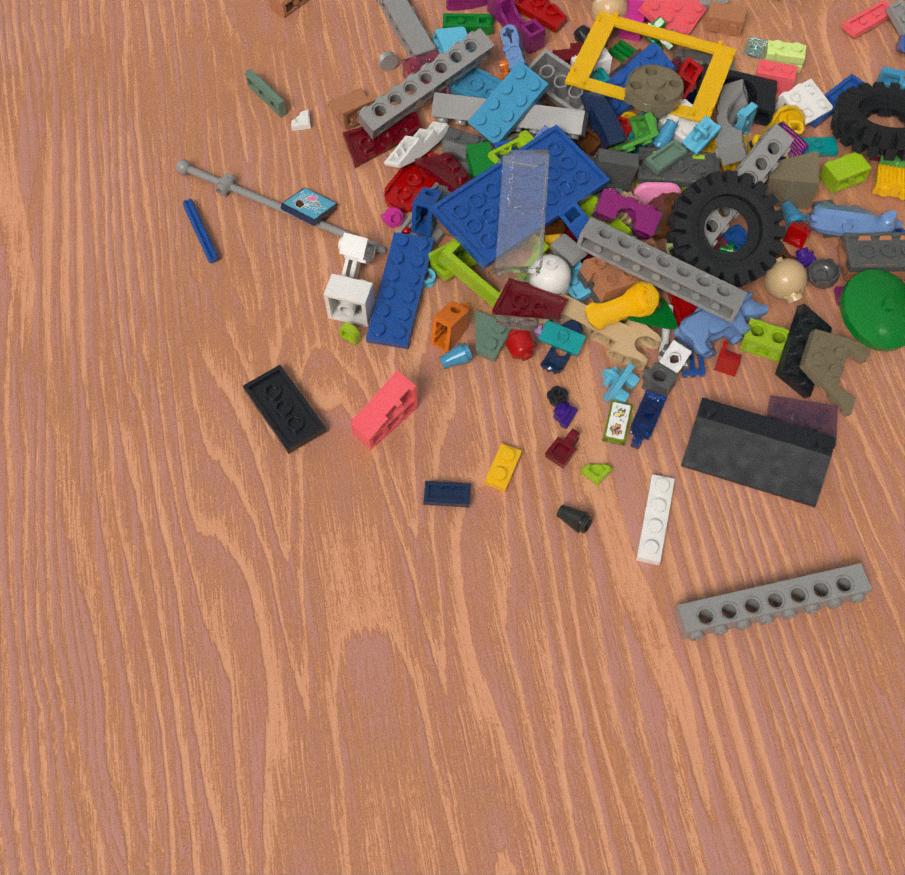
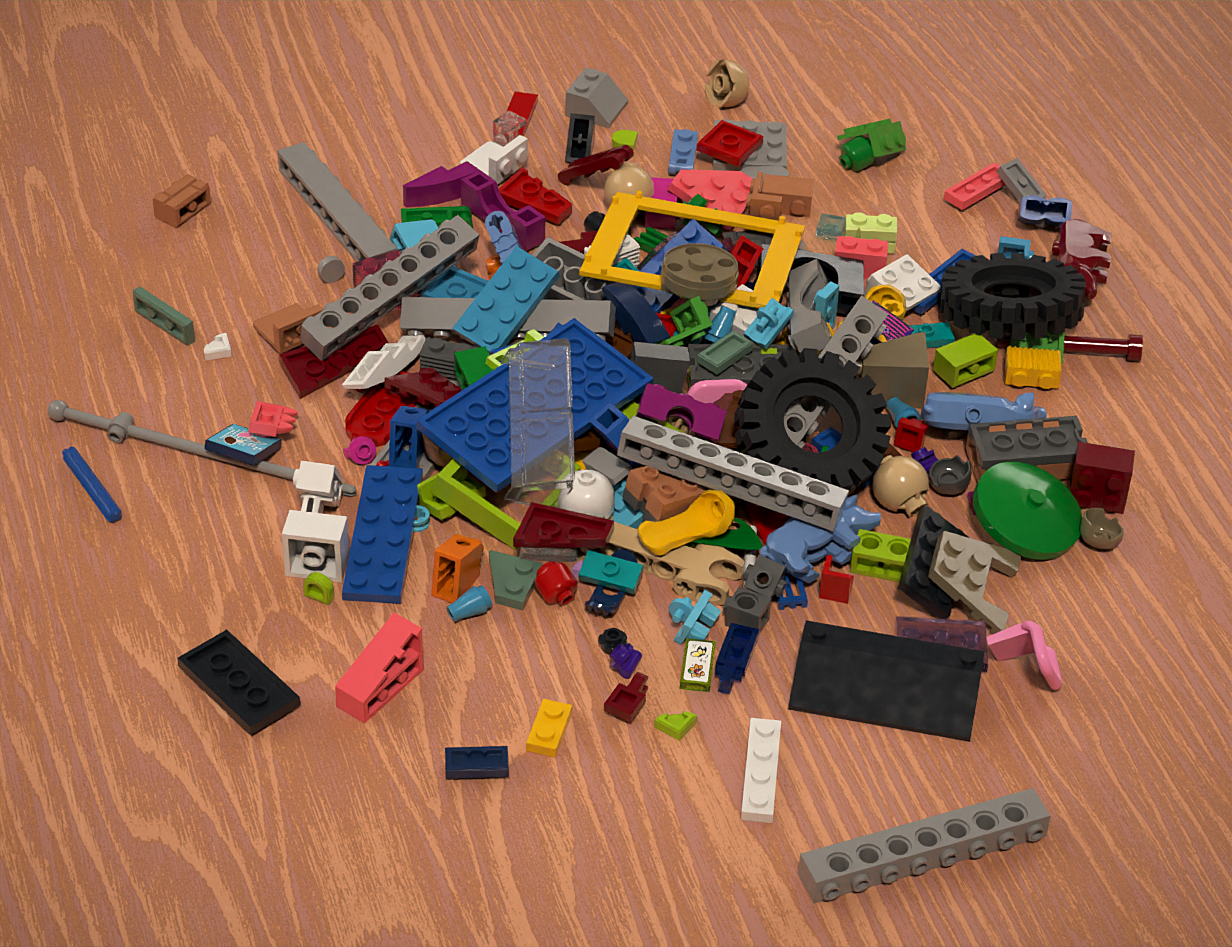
camera: 10 degrees left, 20 degrees down
(331, 187) = (271, 419): none -> coral plate
(575, 518) = (654, 775): pearl dark grey cone -> none
(705, 29) = (762, 204): none -> nougat bracket
(870, 428) = (1024, 640): none -> bright pink piece

